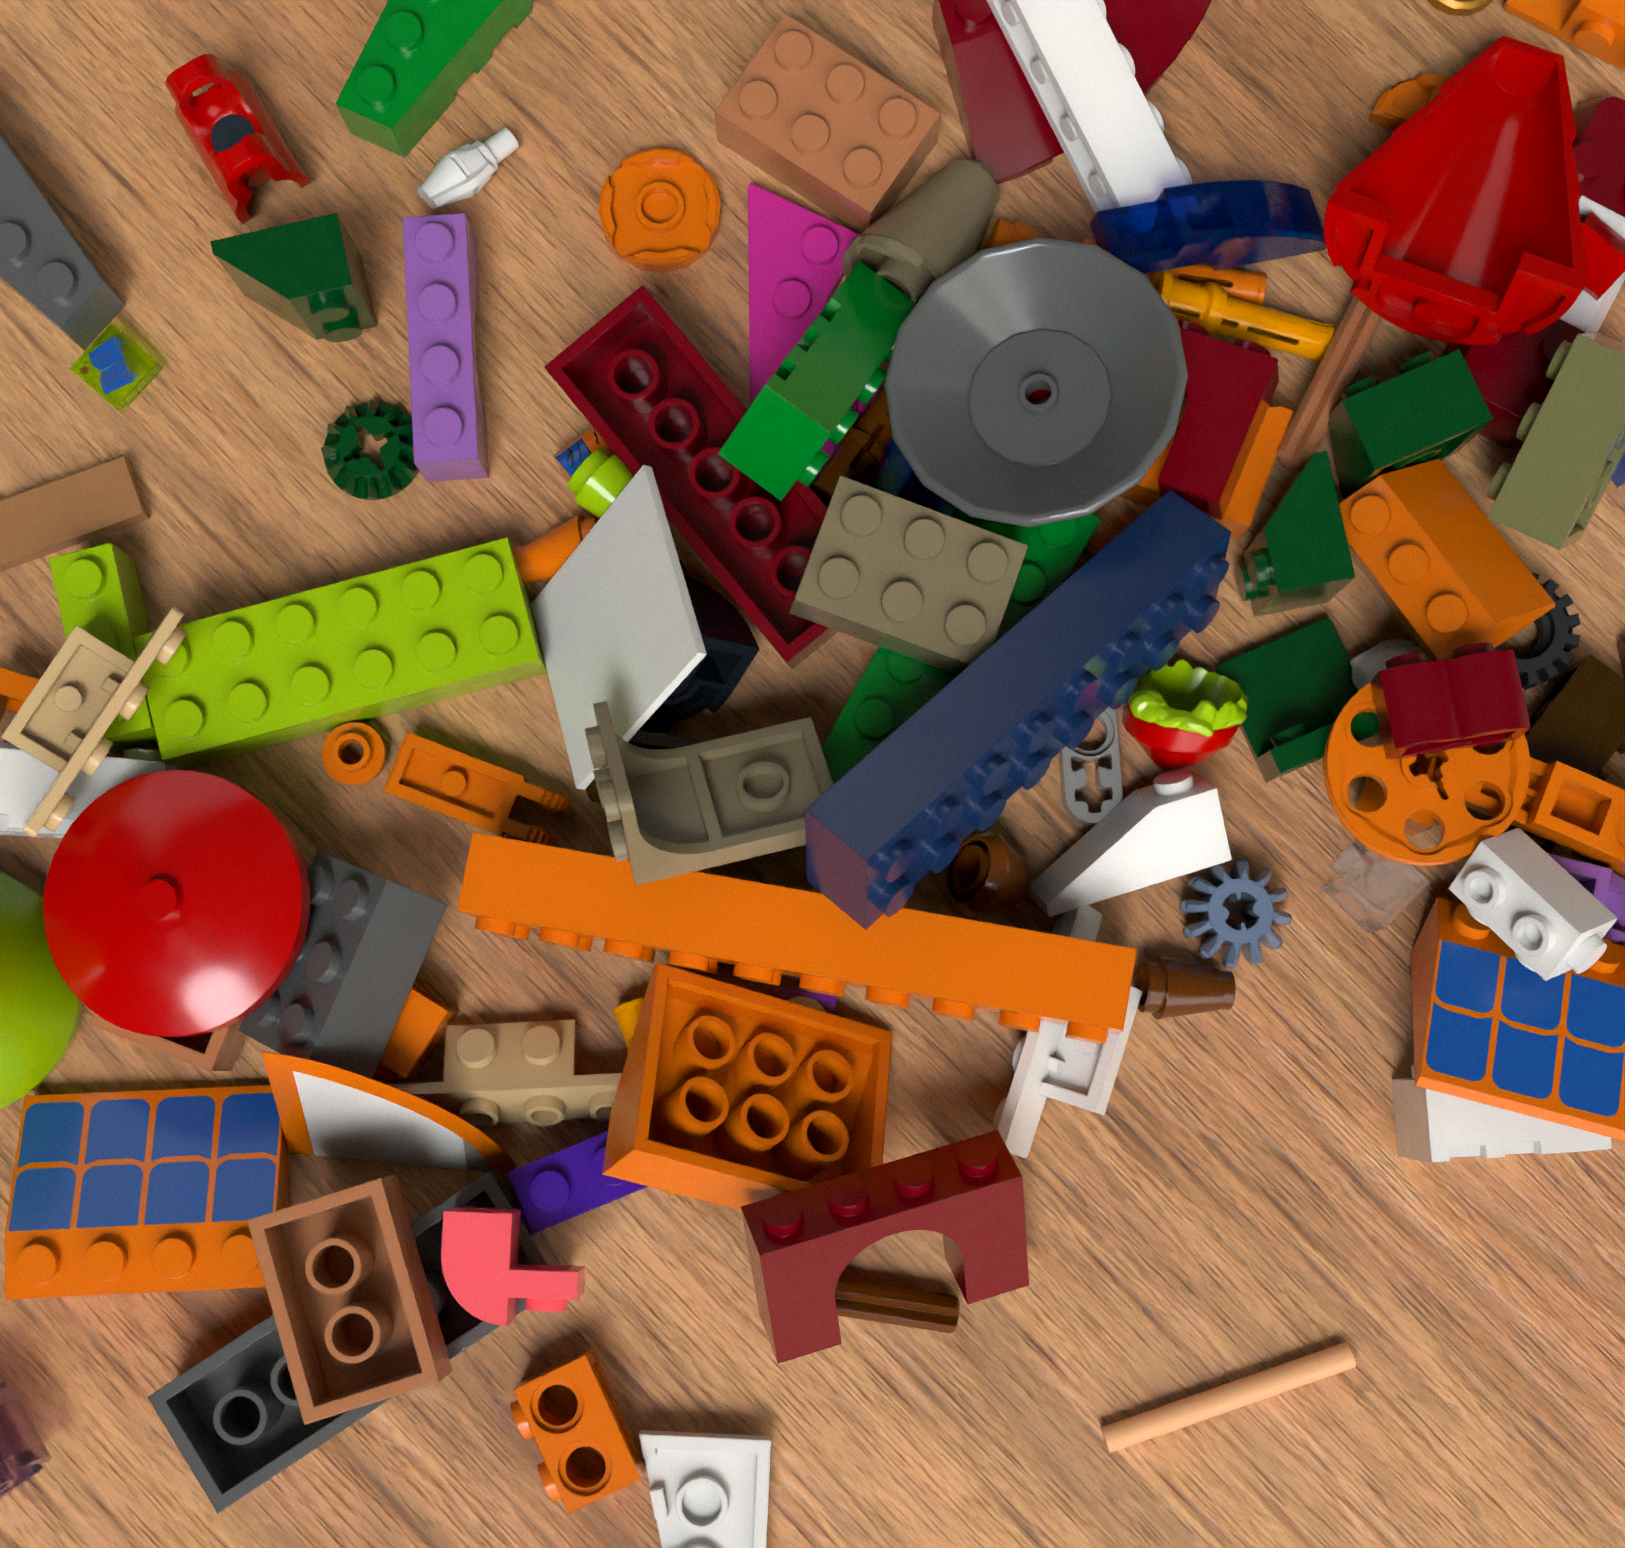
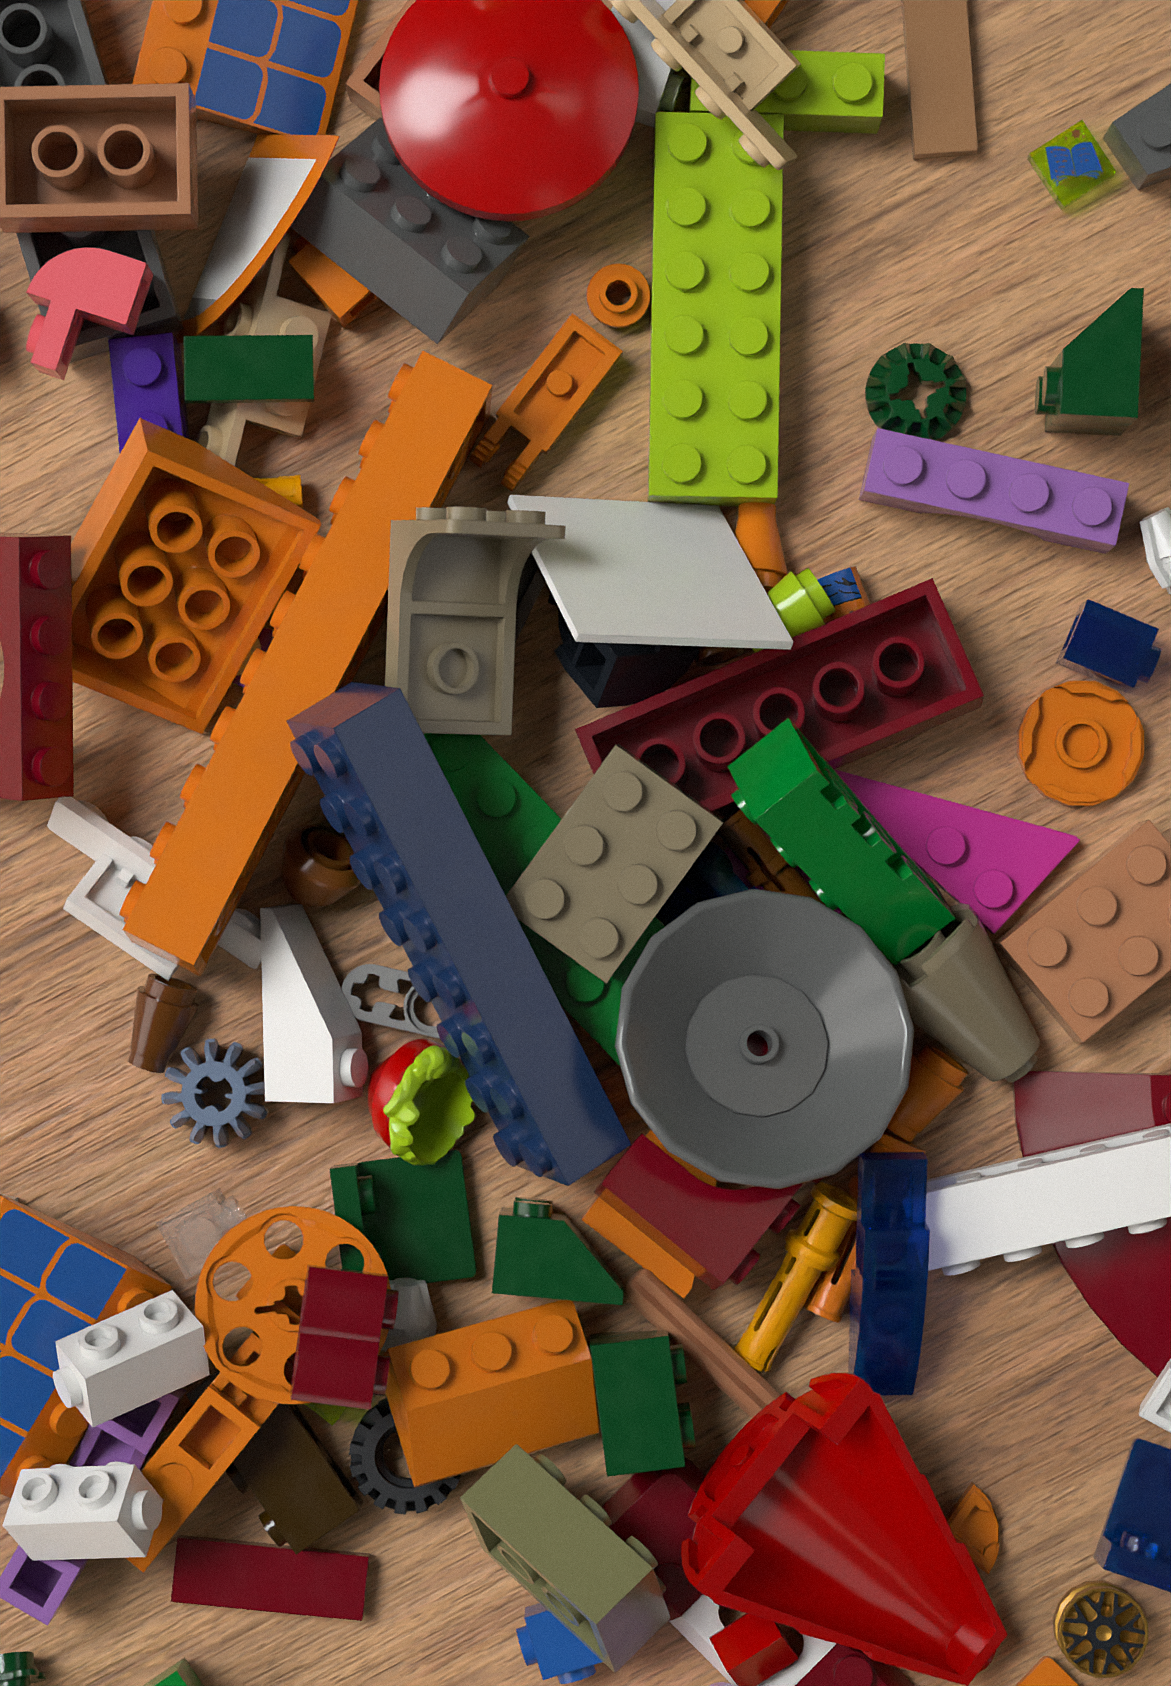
camera: 105 degrees right, 5 degrees up
(522, 1084) = (248, 369): none -> dark green tile
(562, 204) = (1110, 647): none -> clear blue brick

